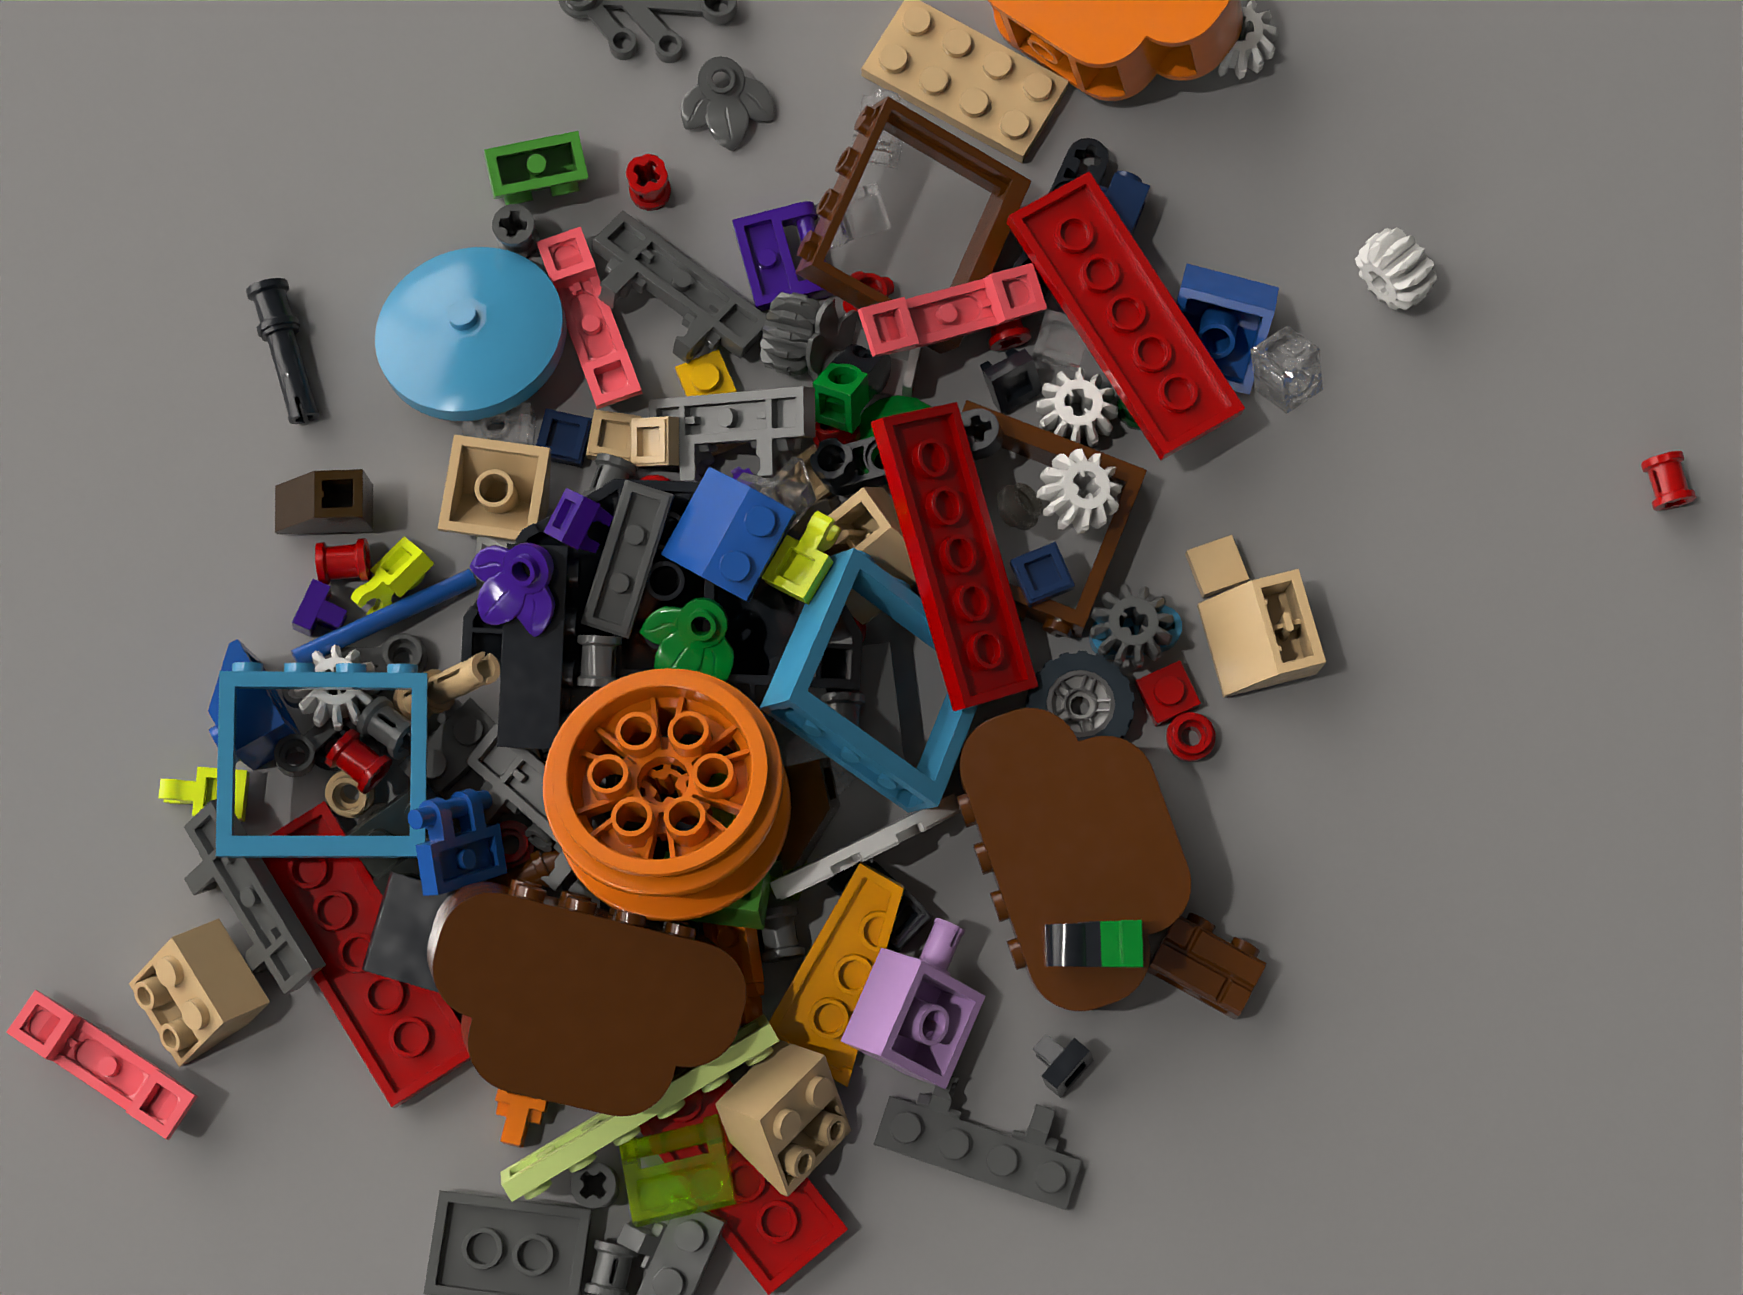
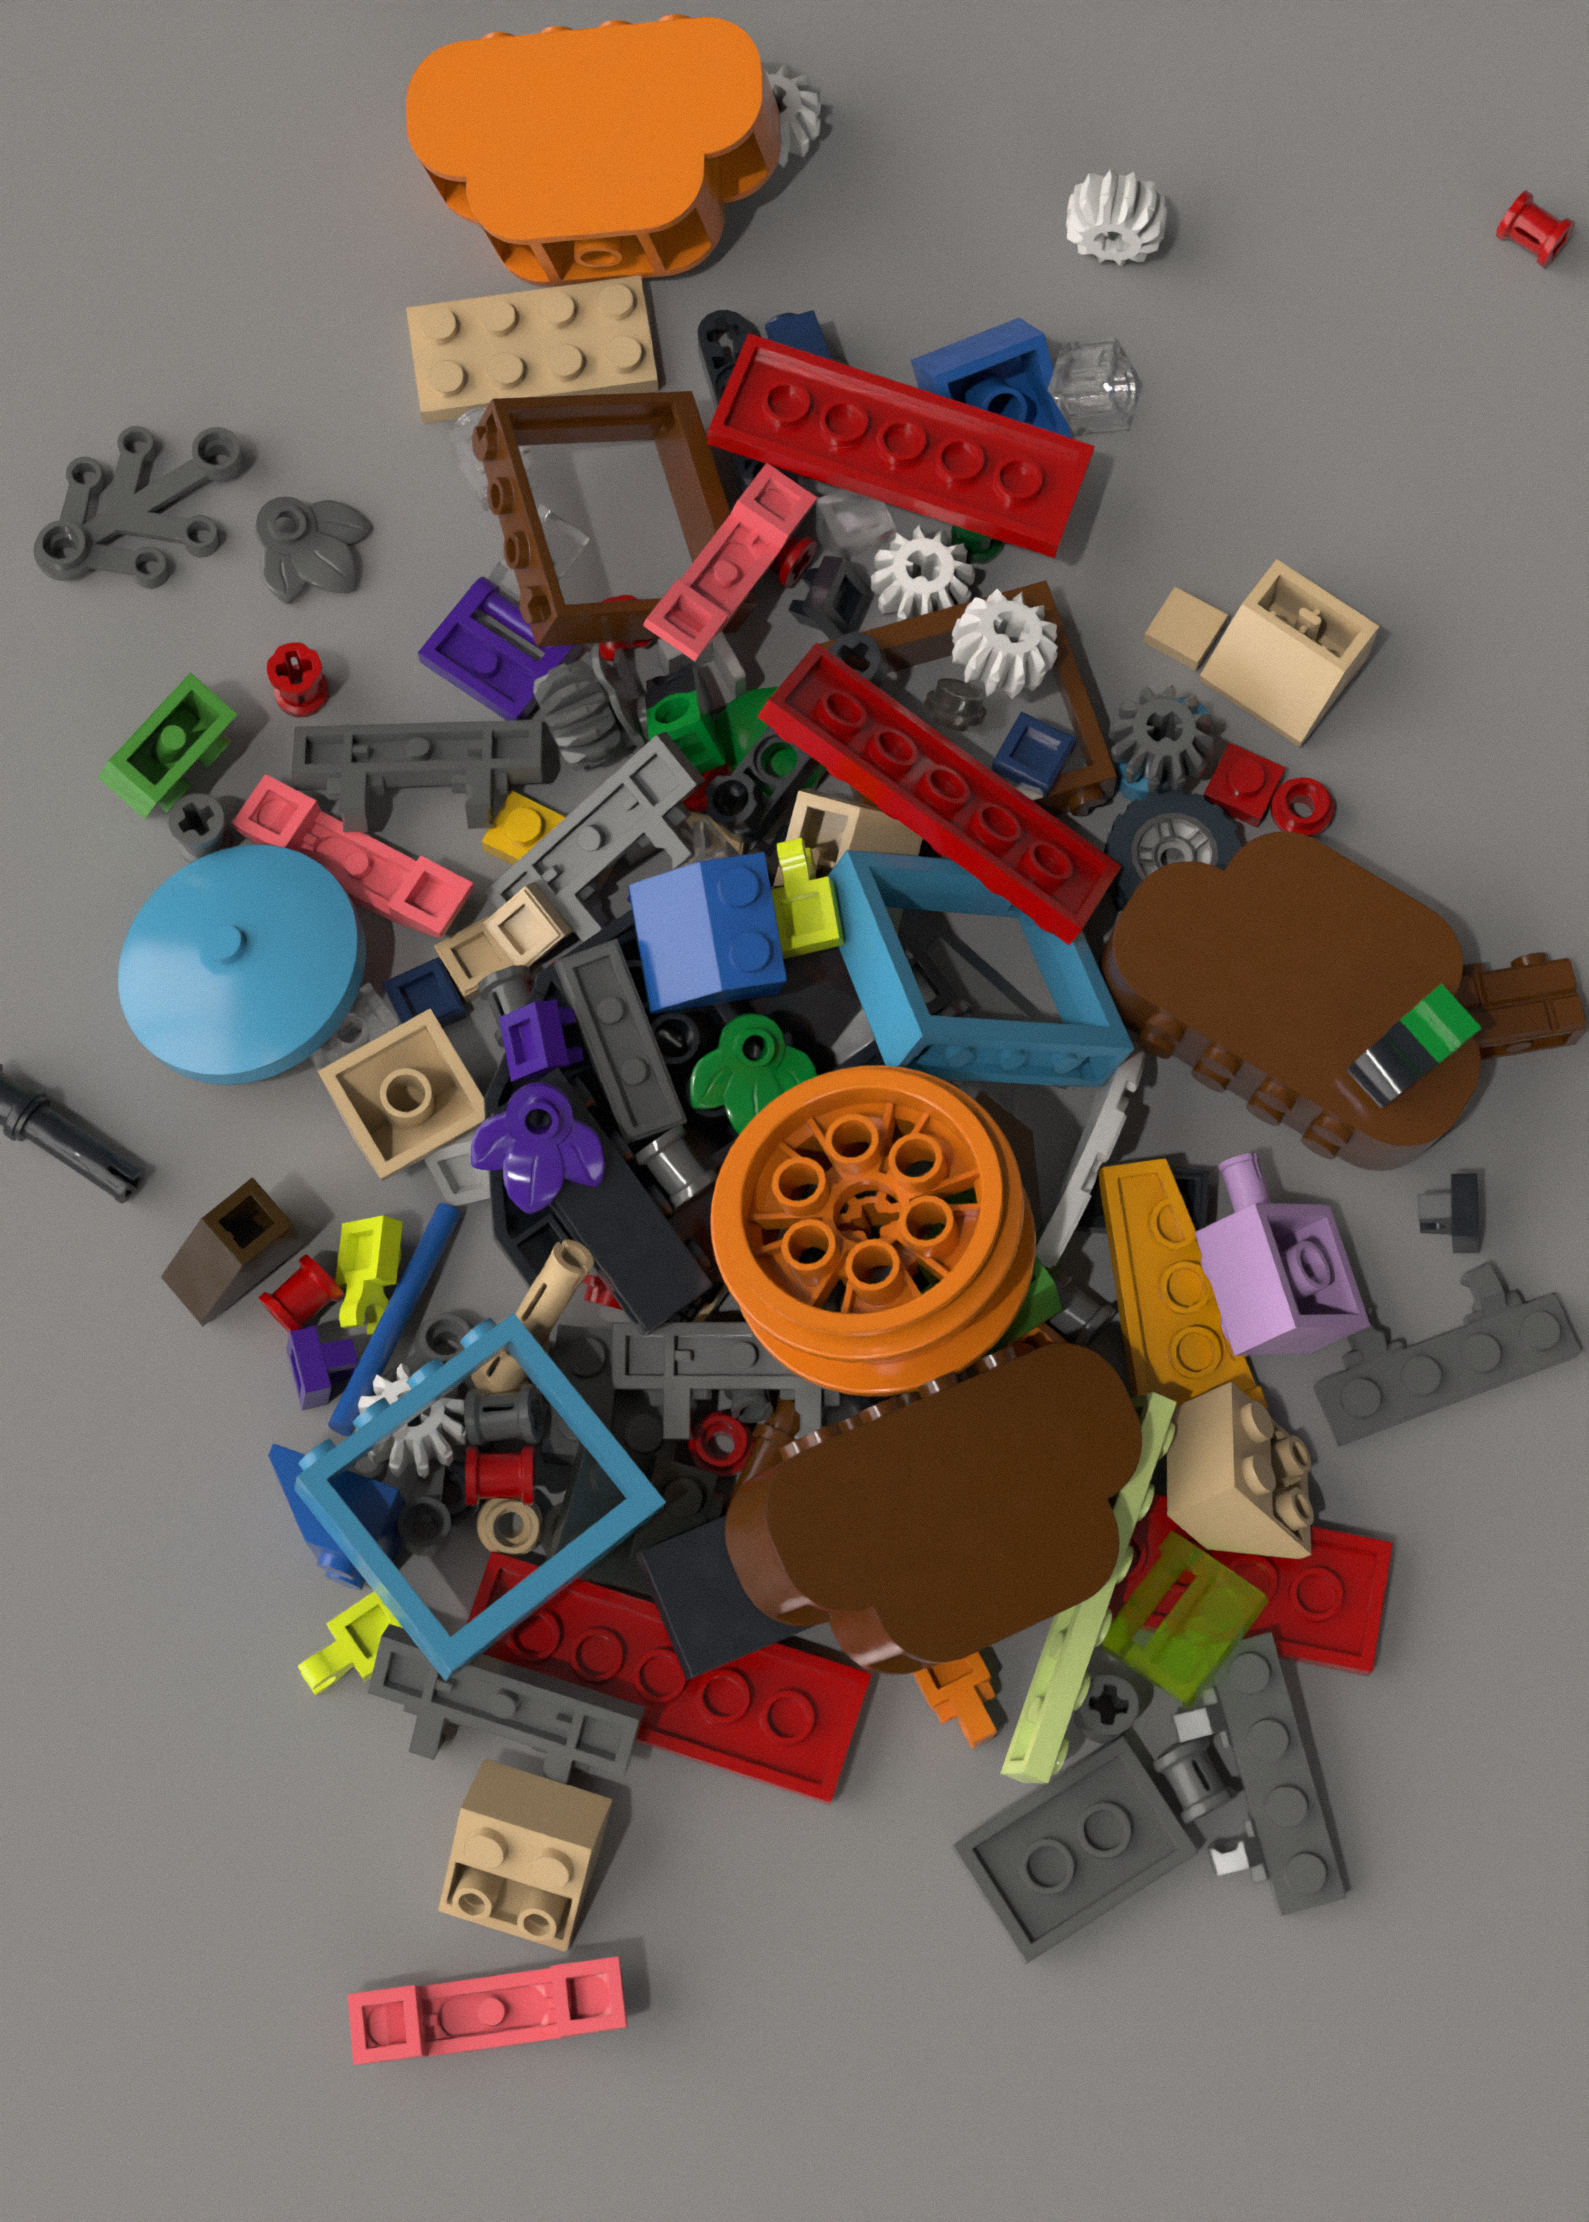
camera: 40 degrees left, 5 degrees down
(461, 857) = (694, 1464): blue plate -> none

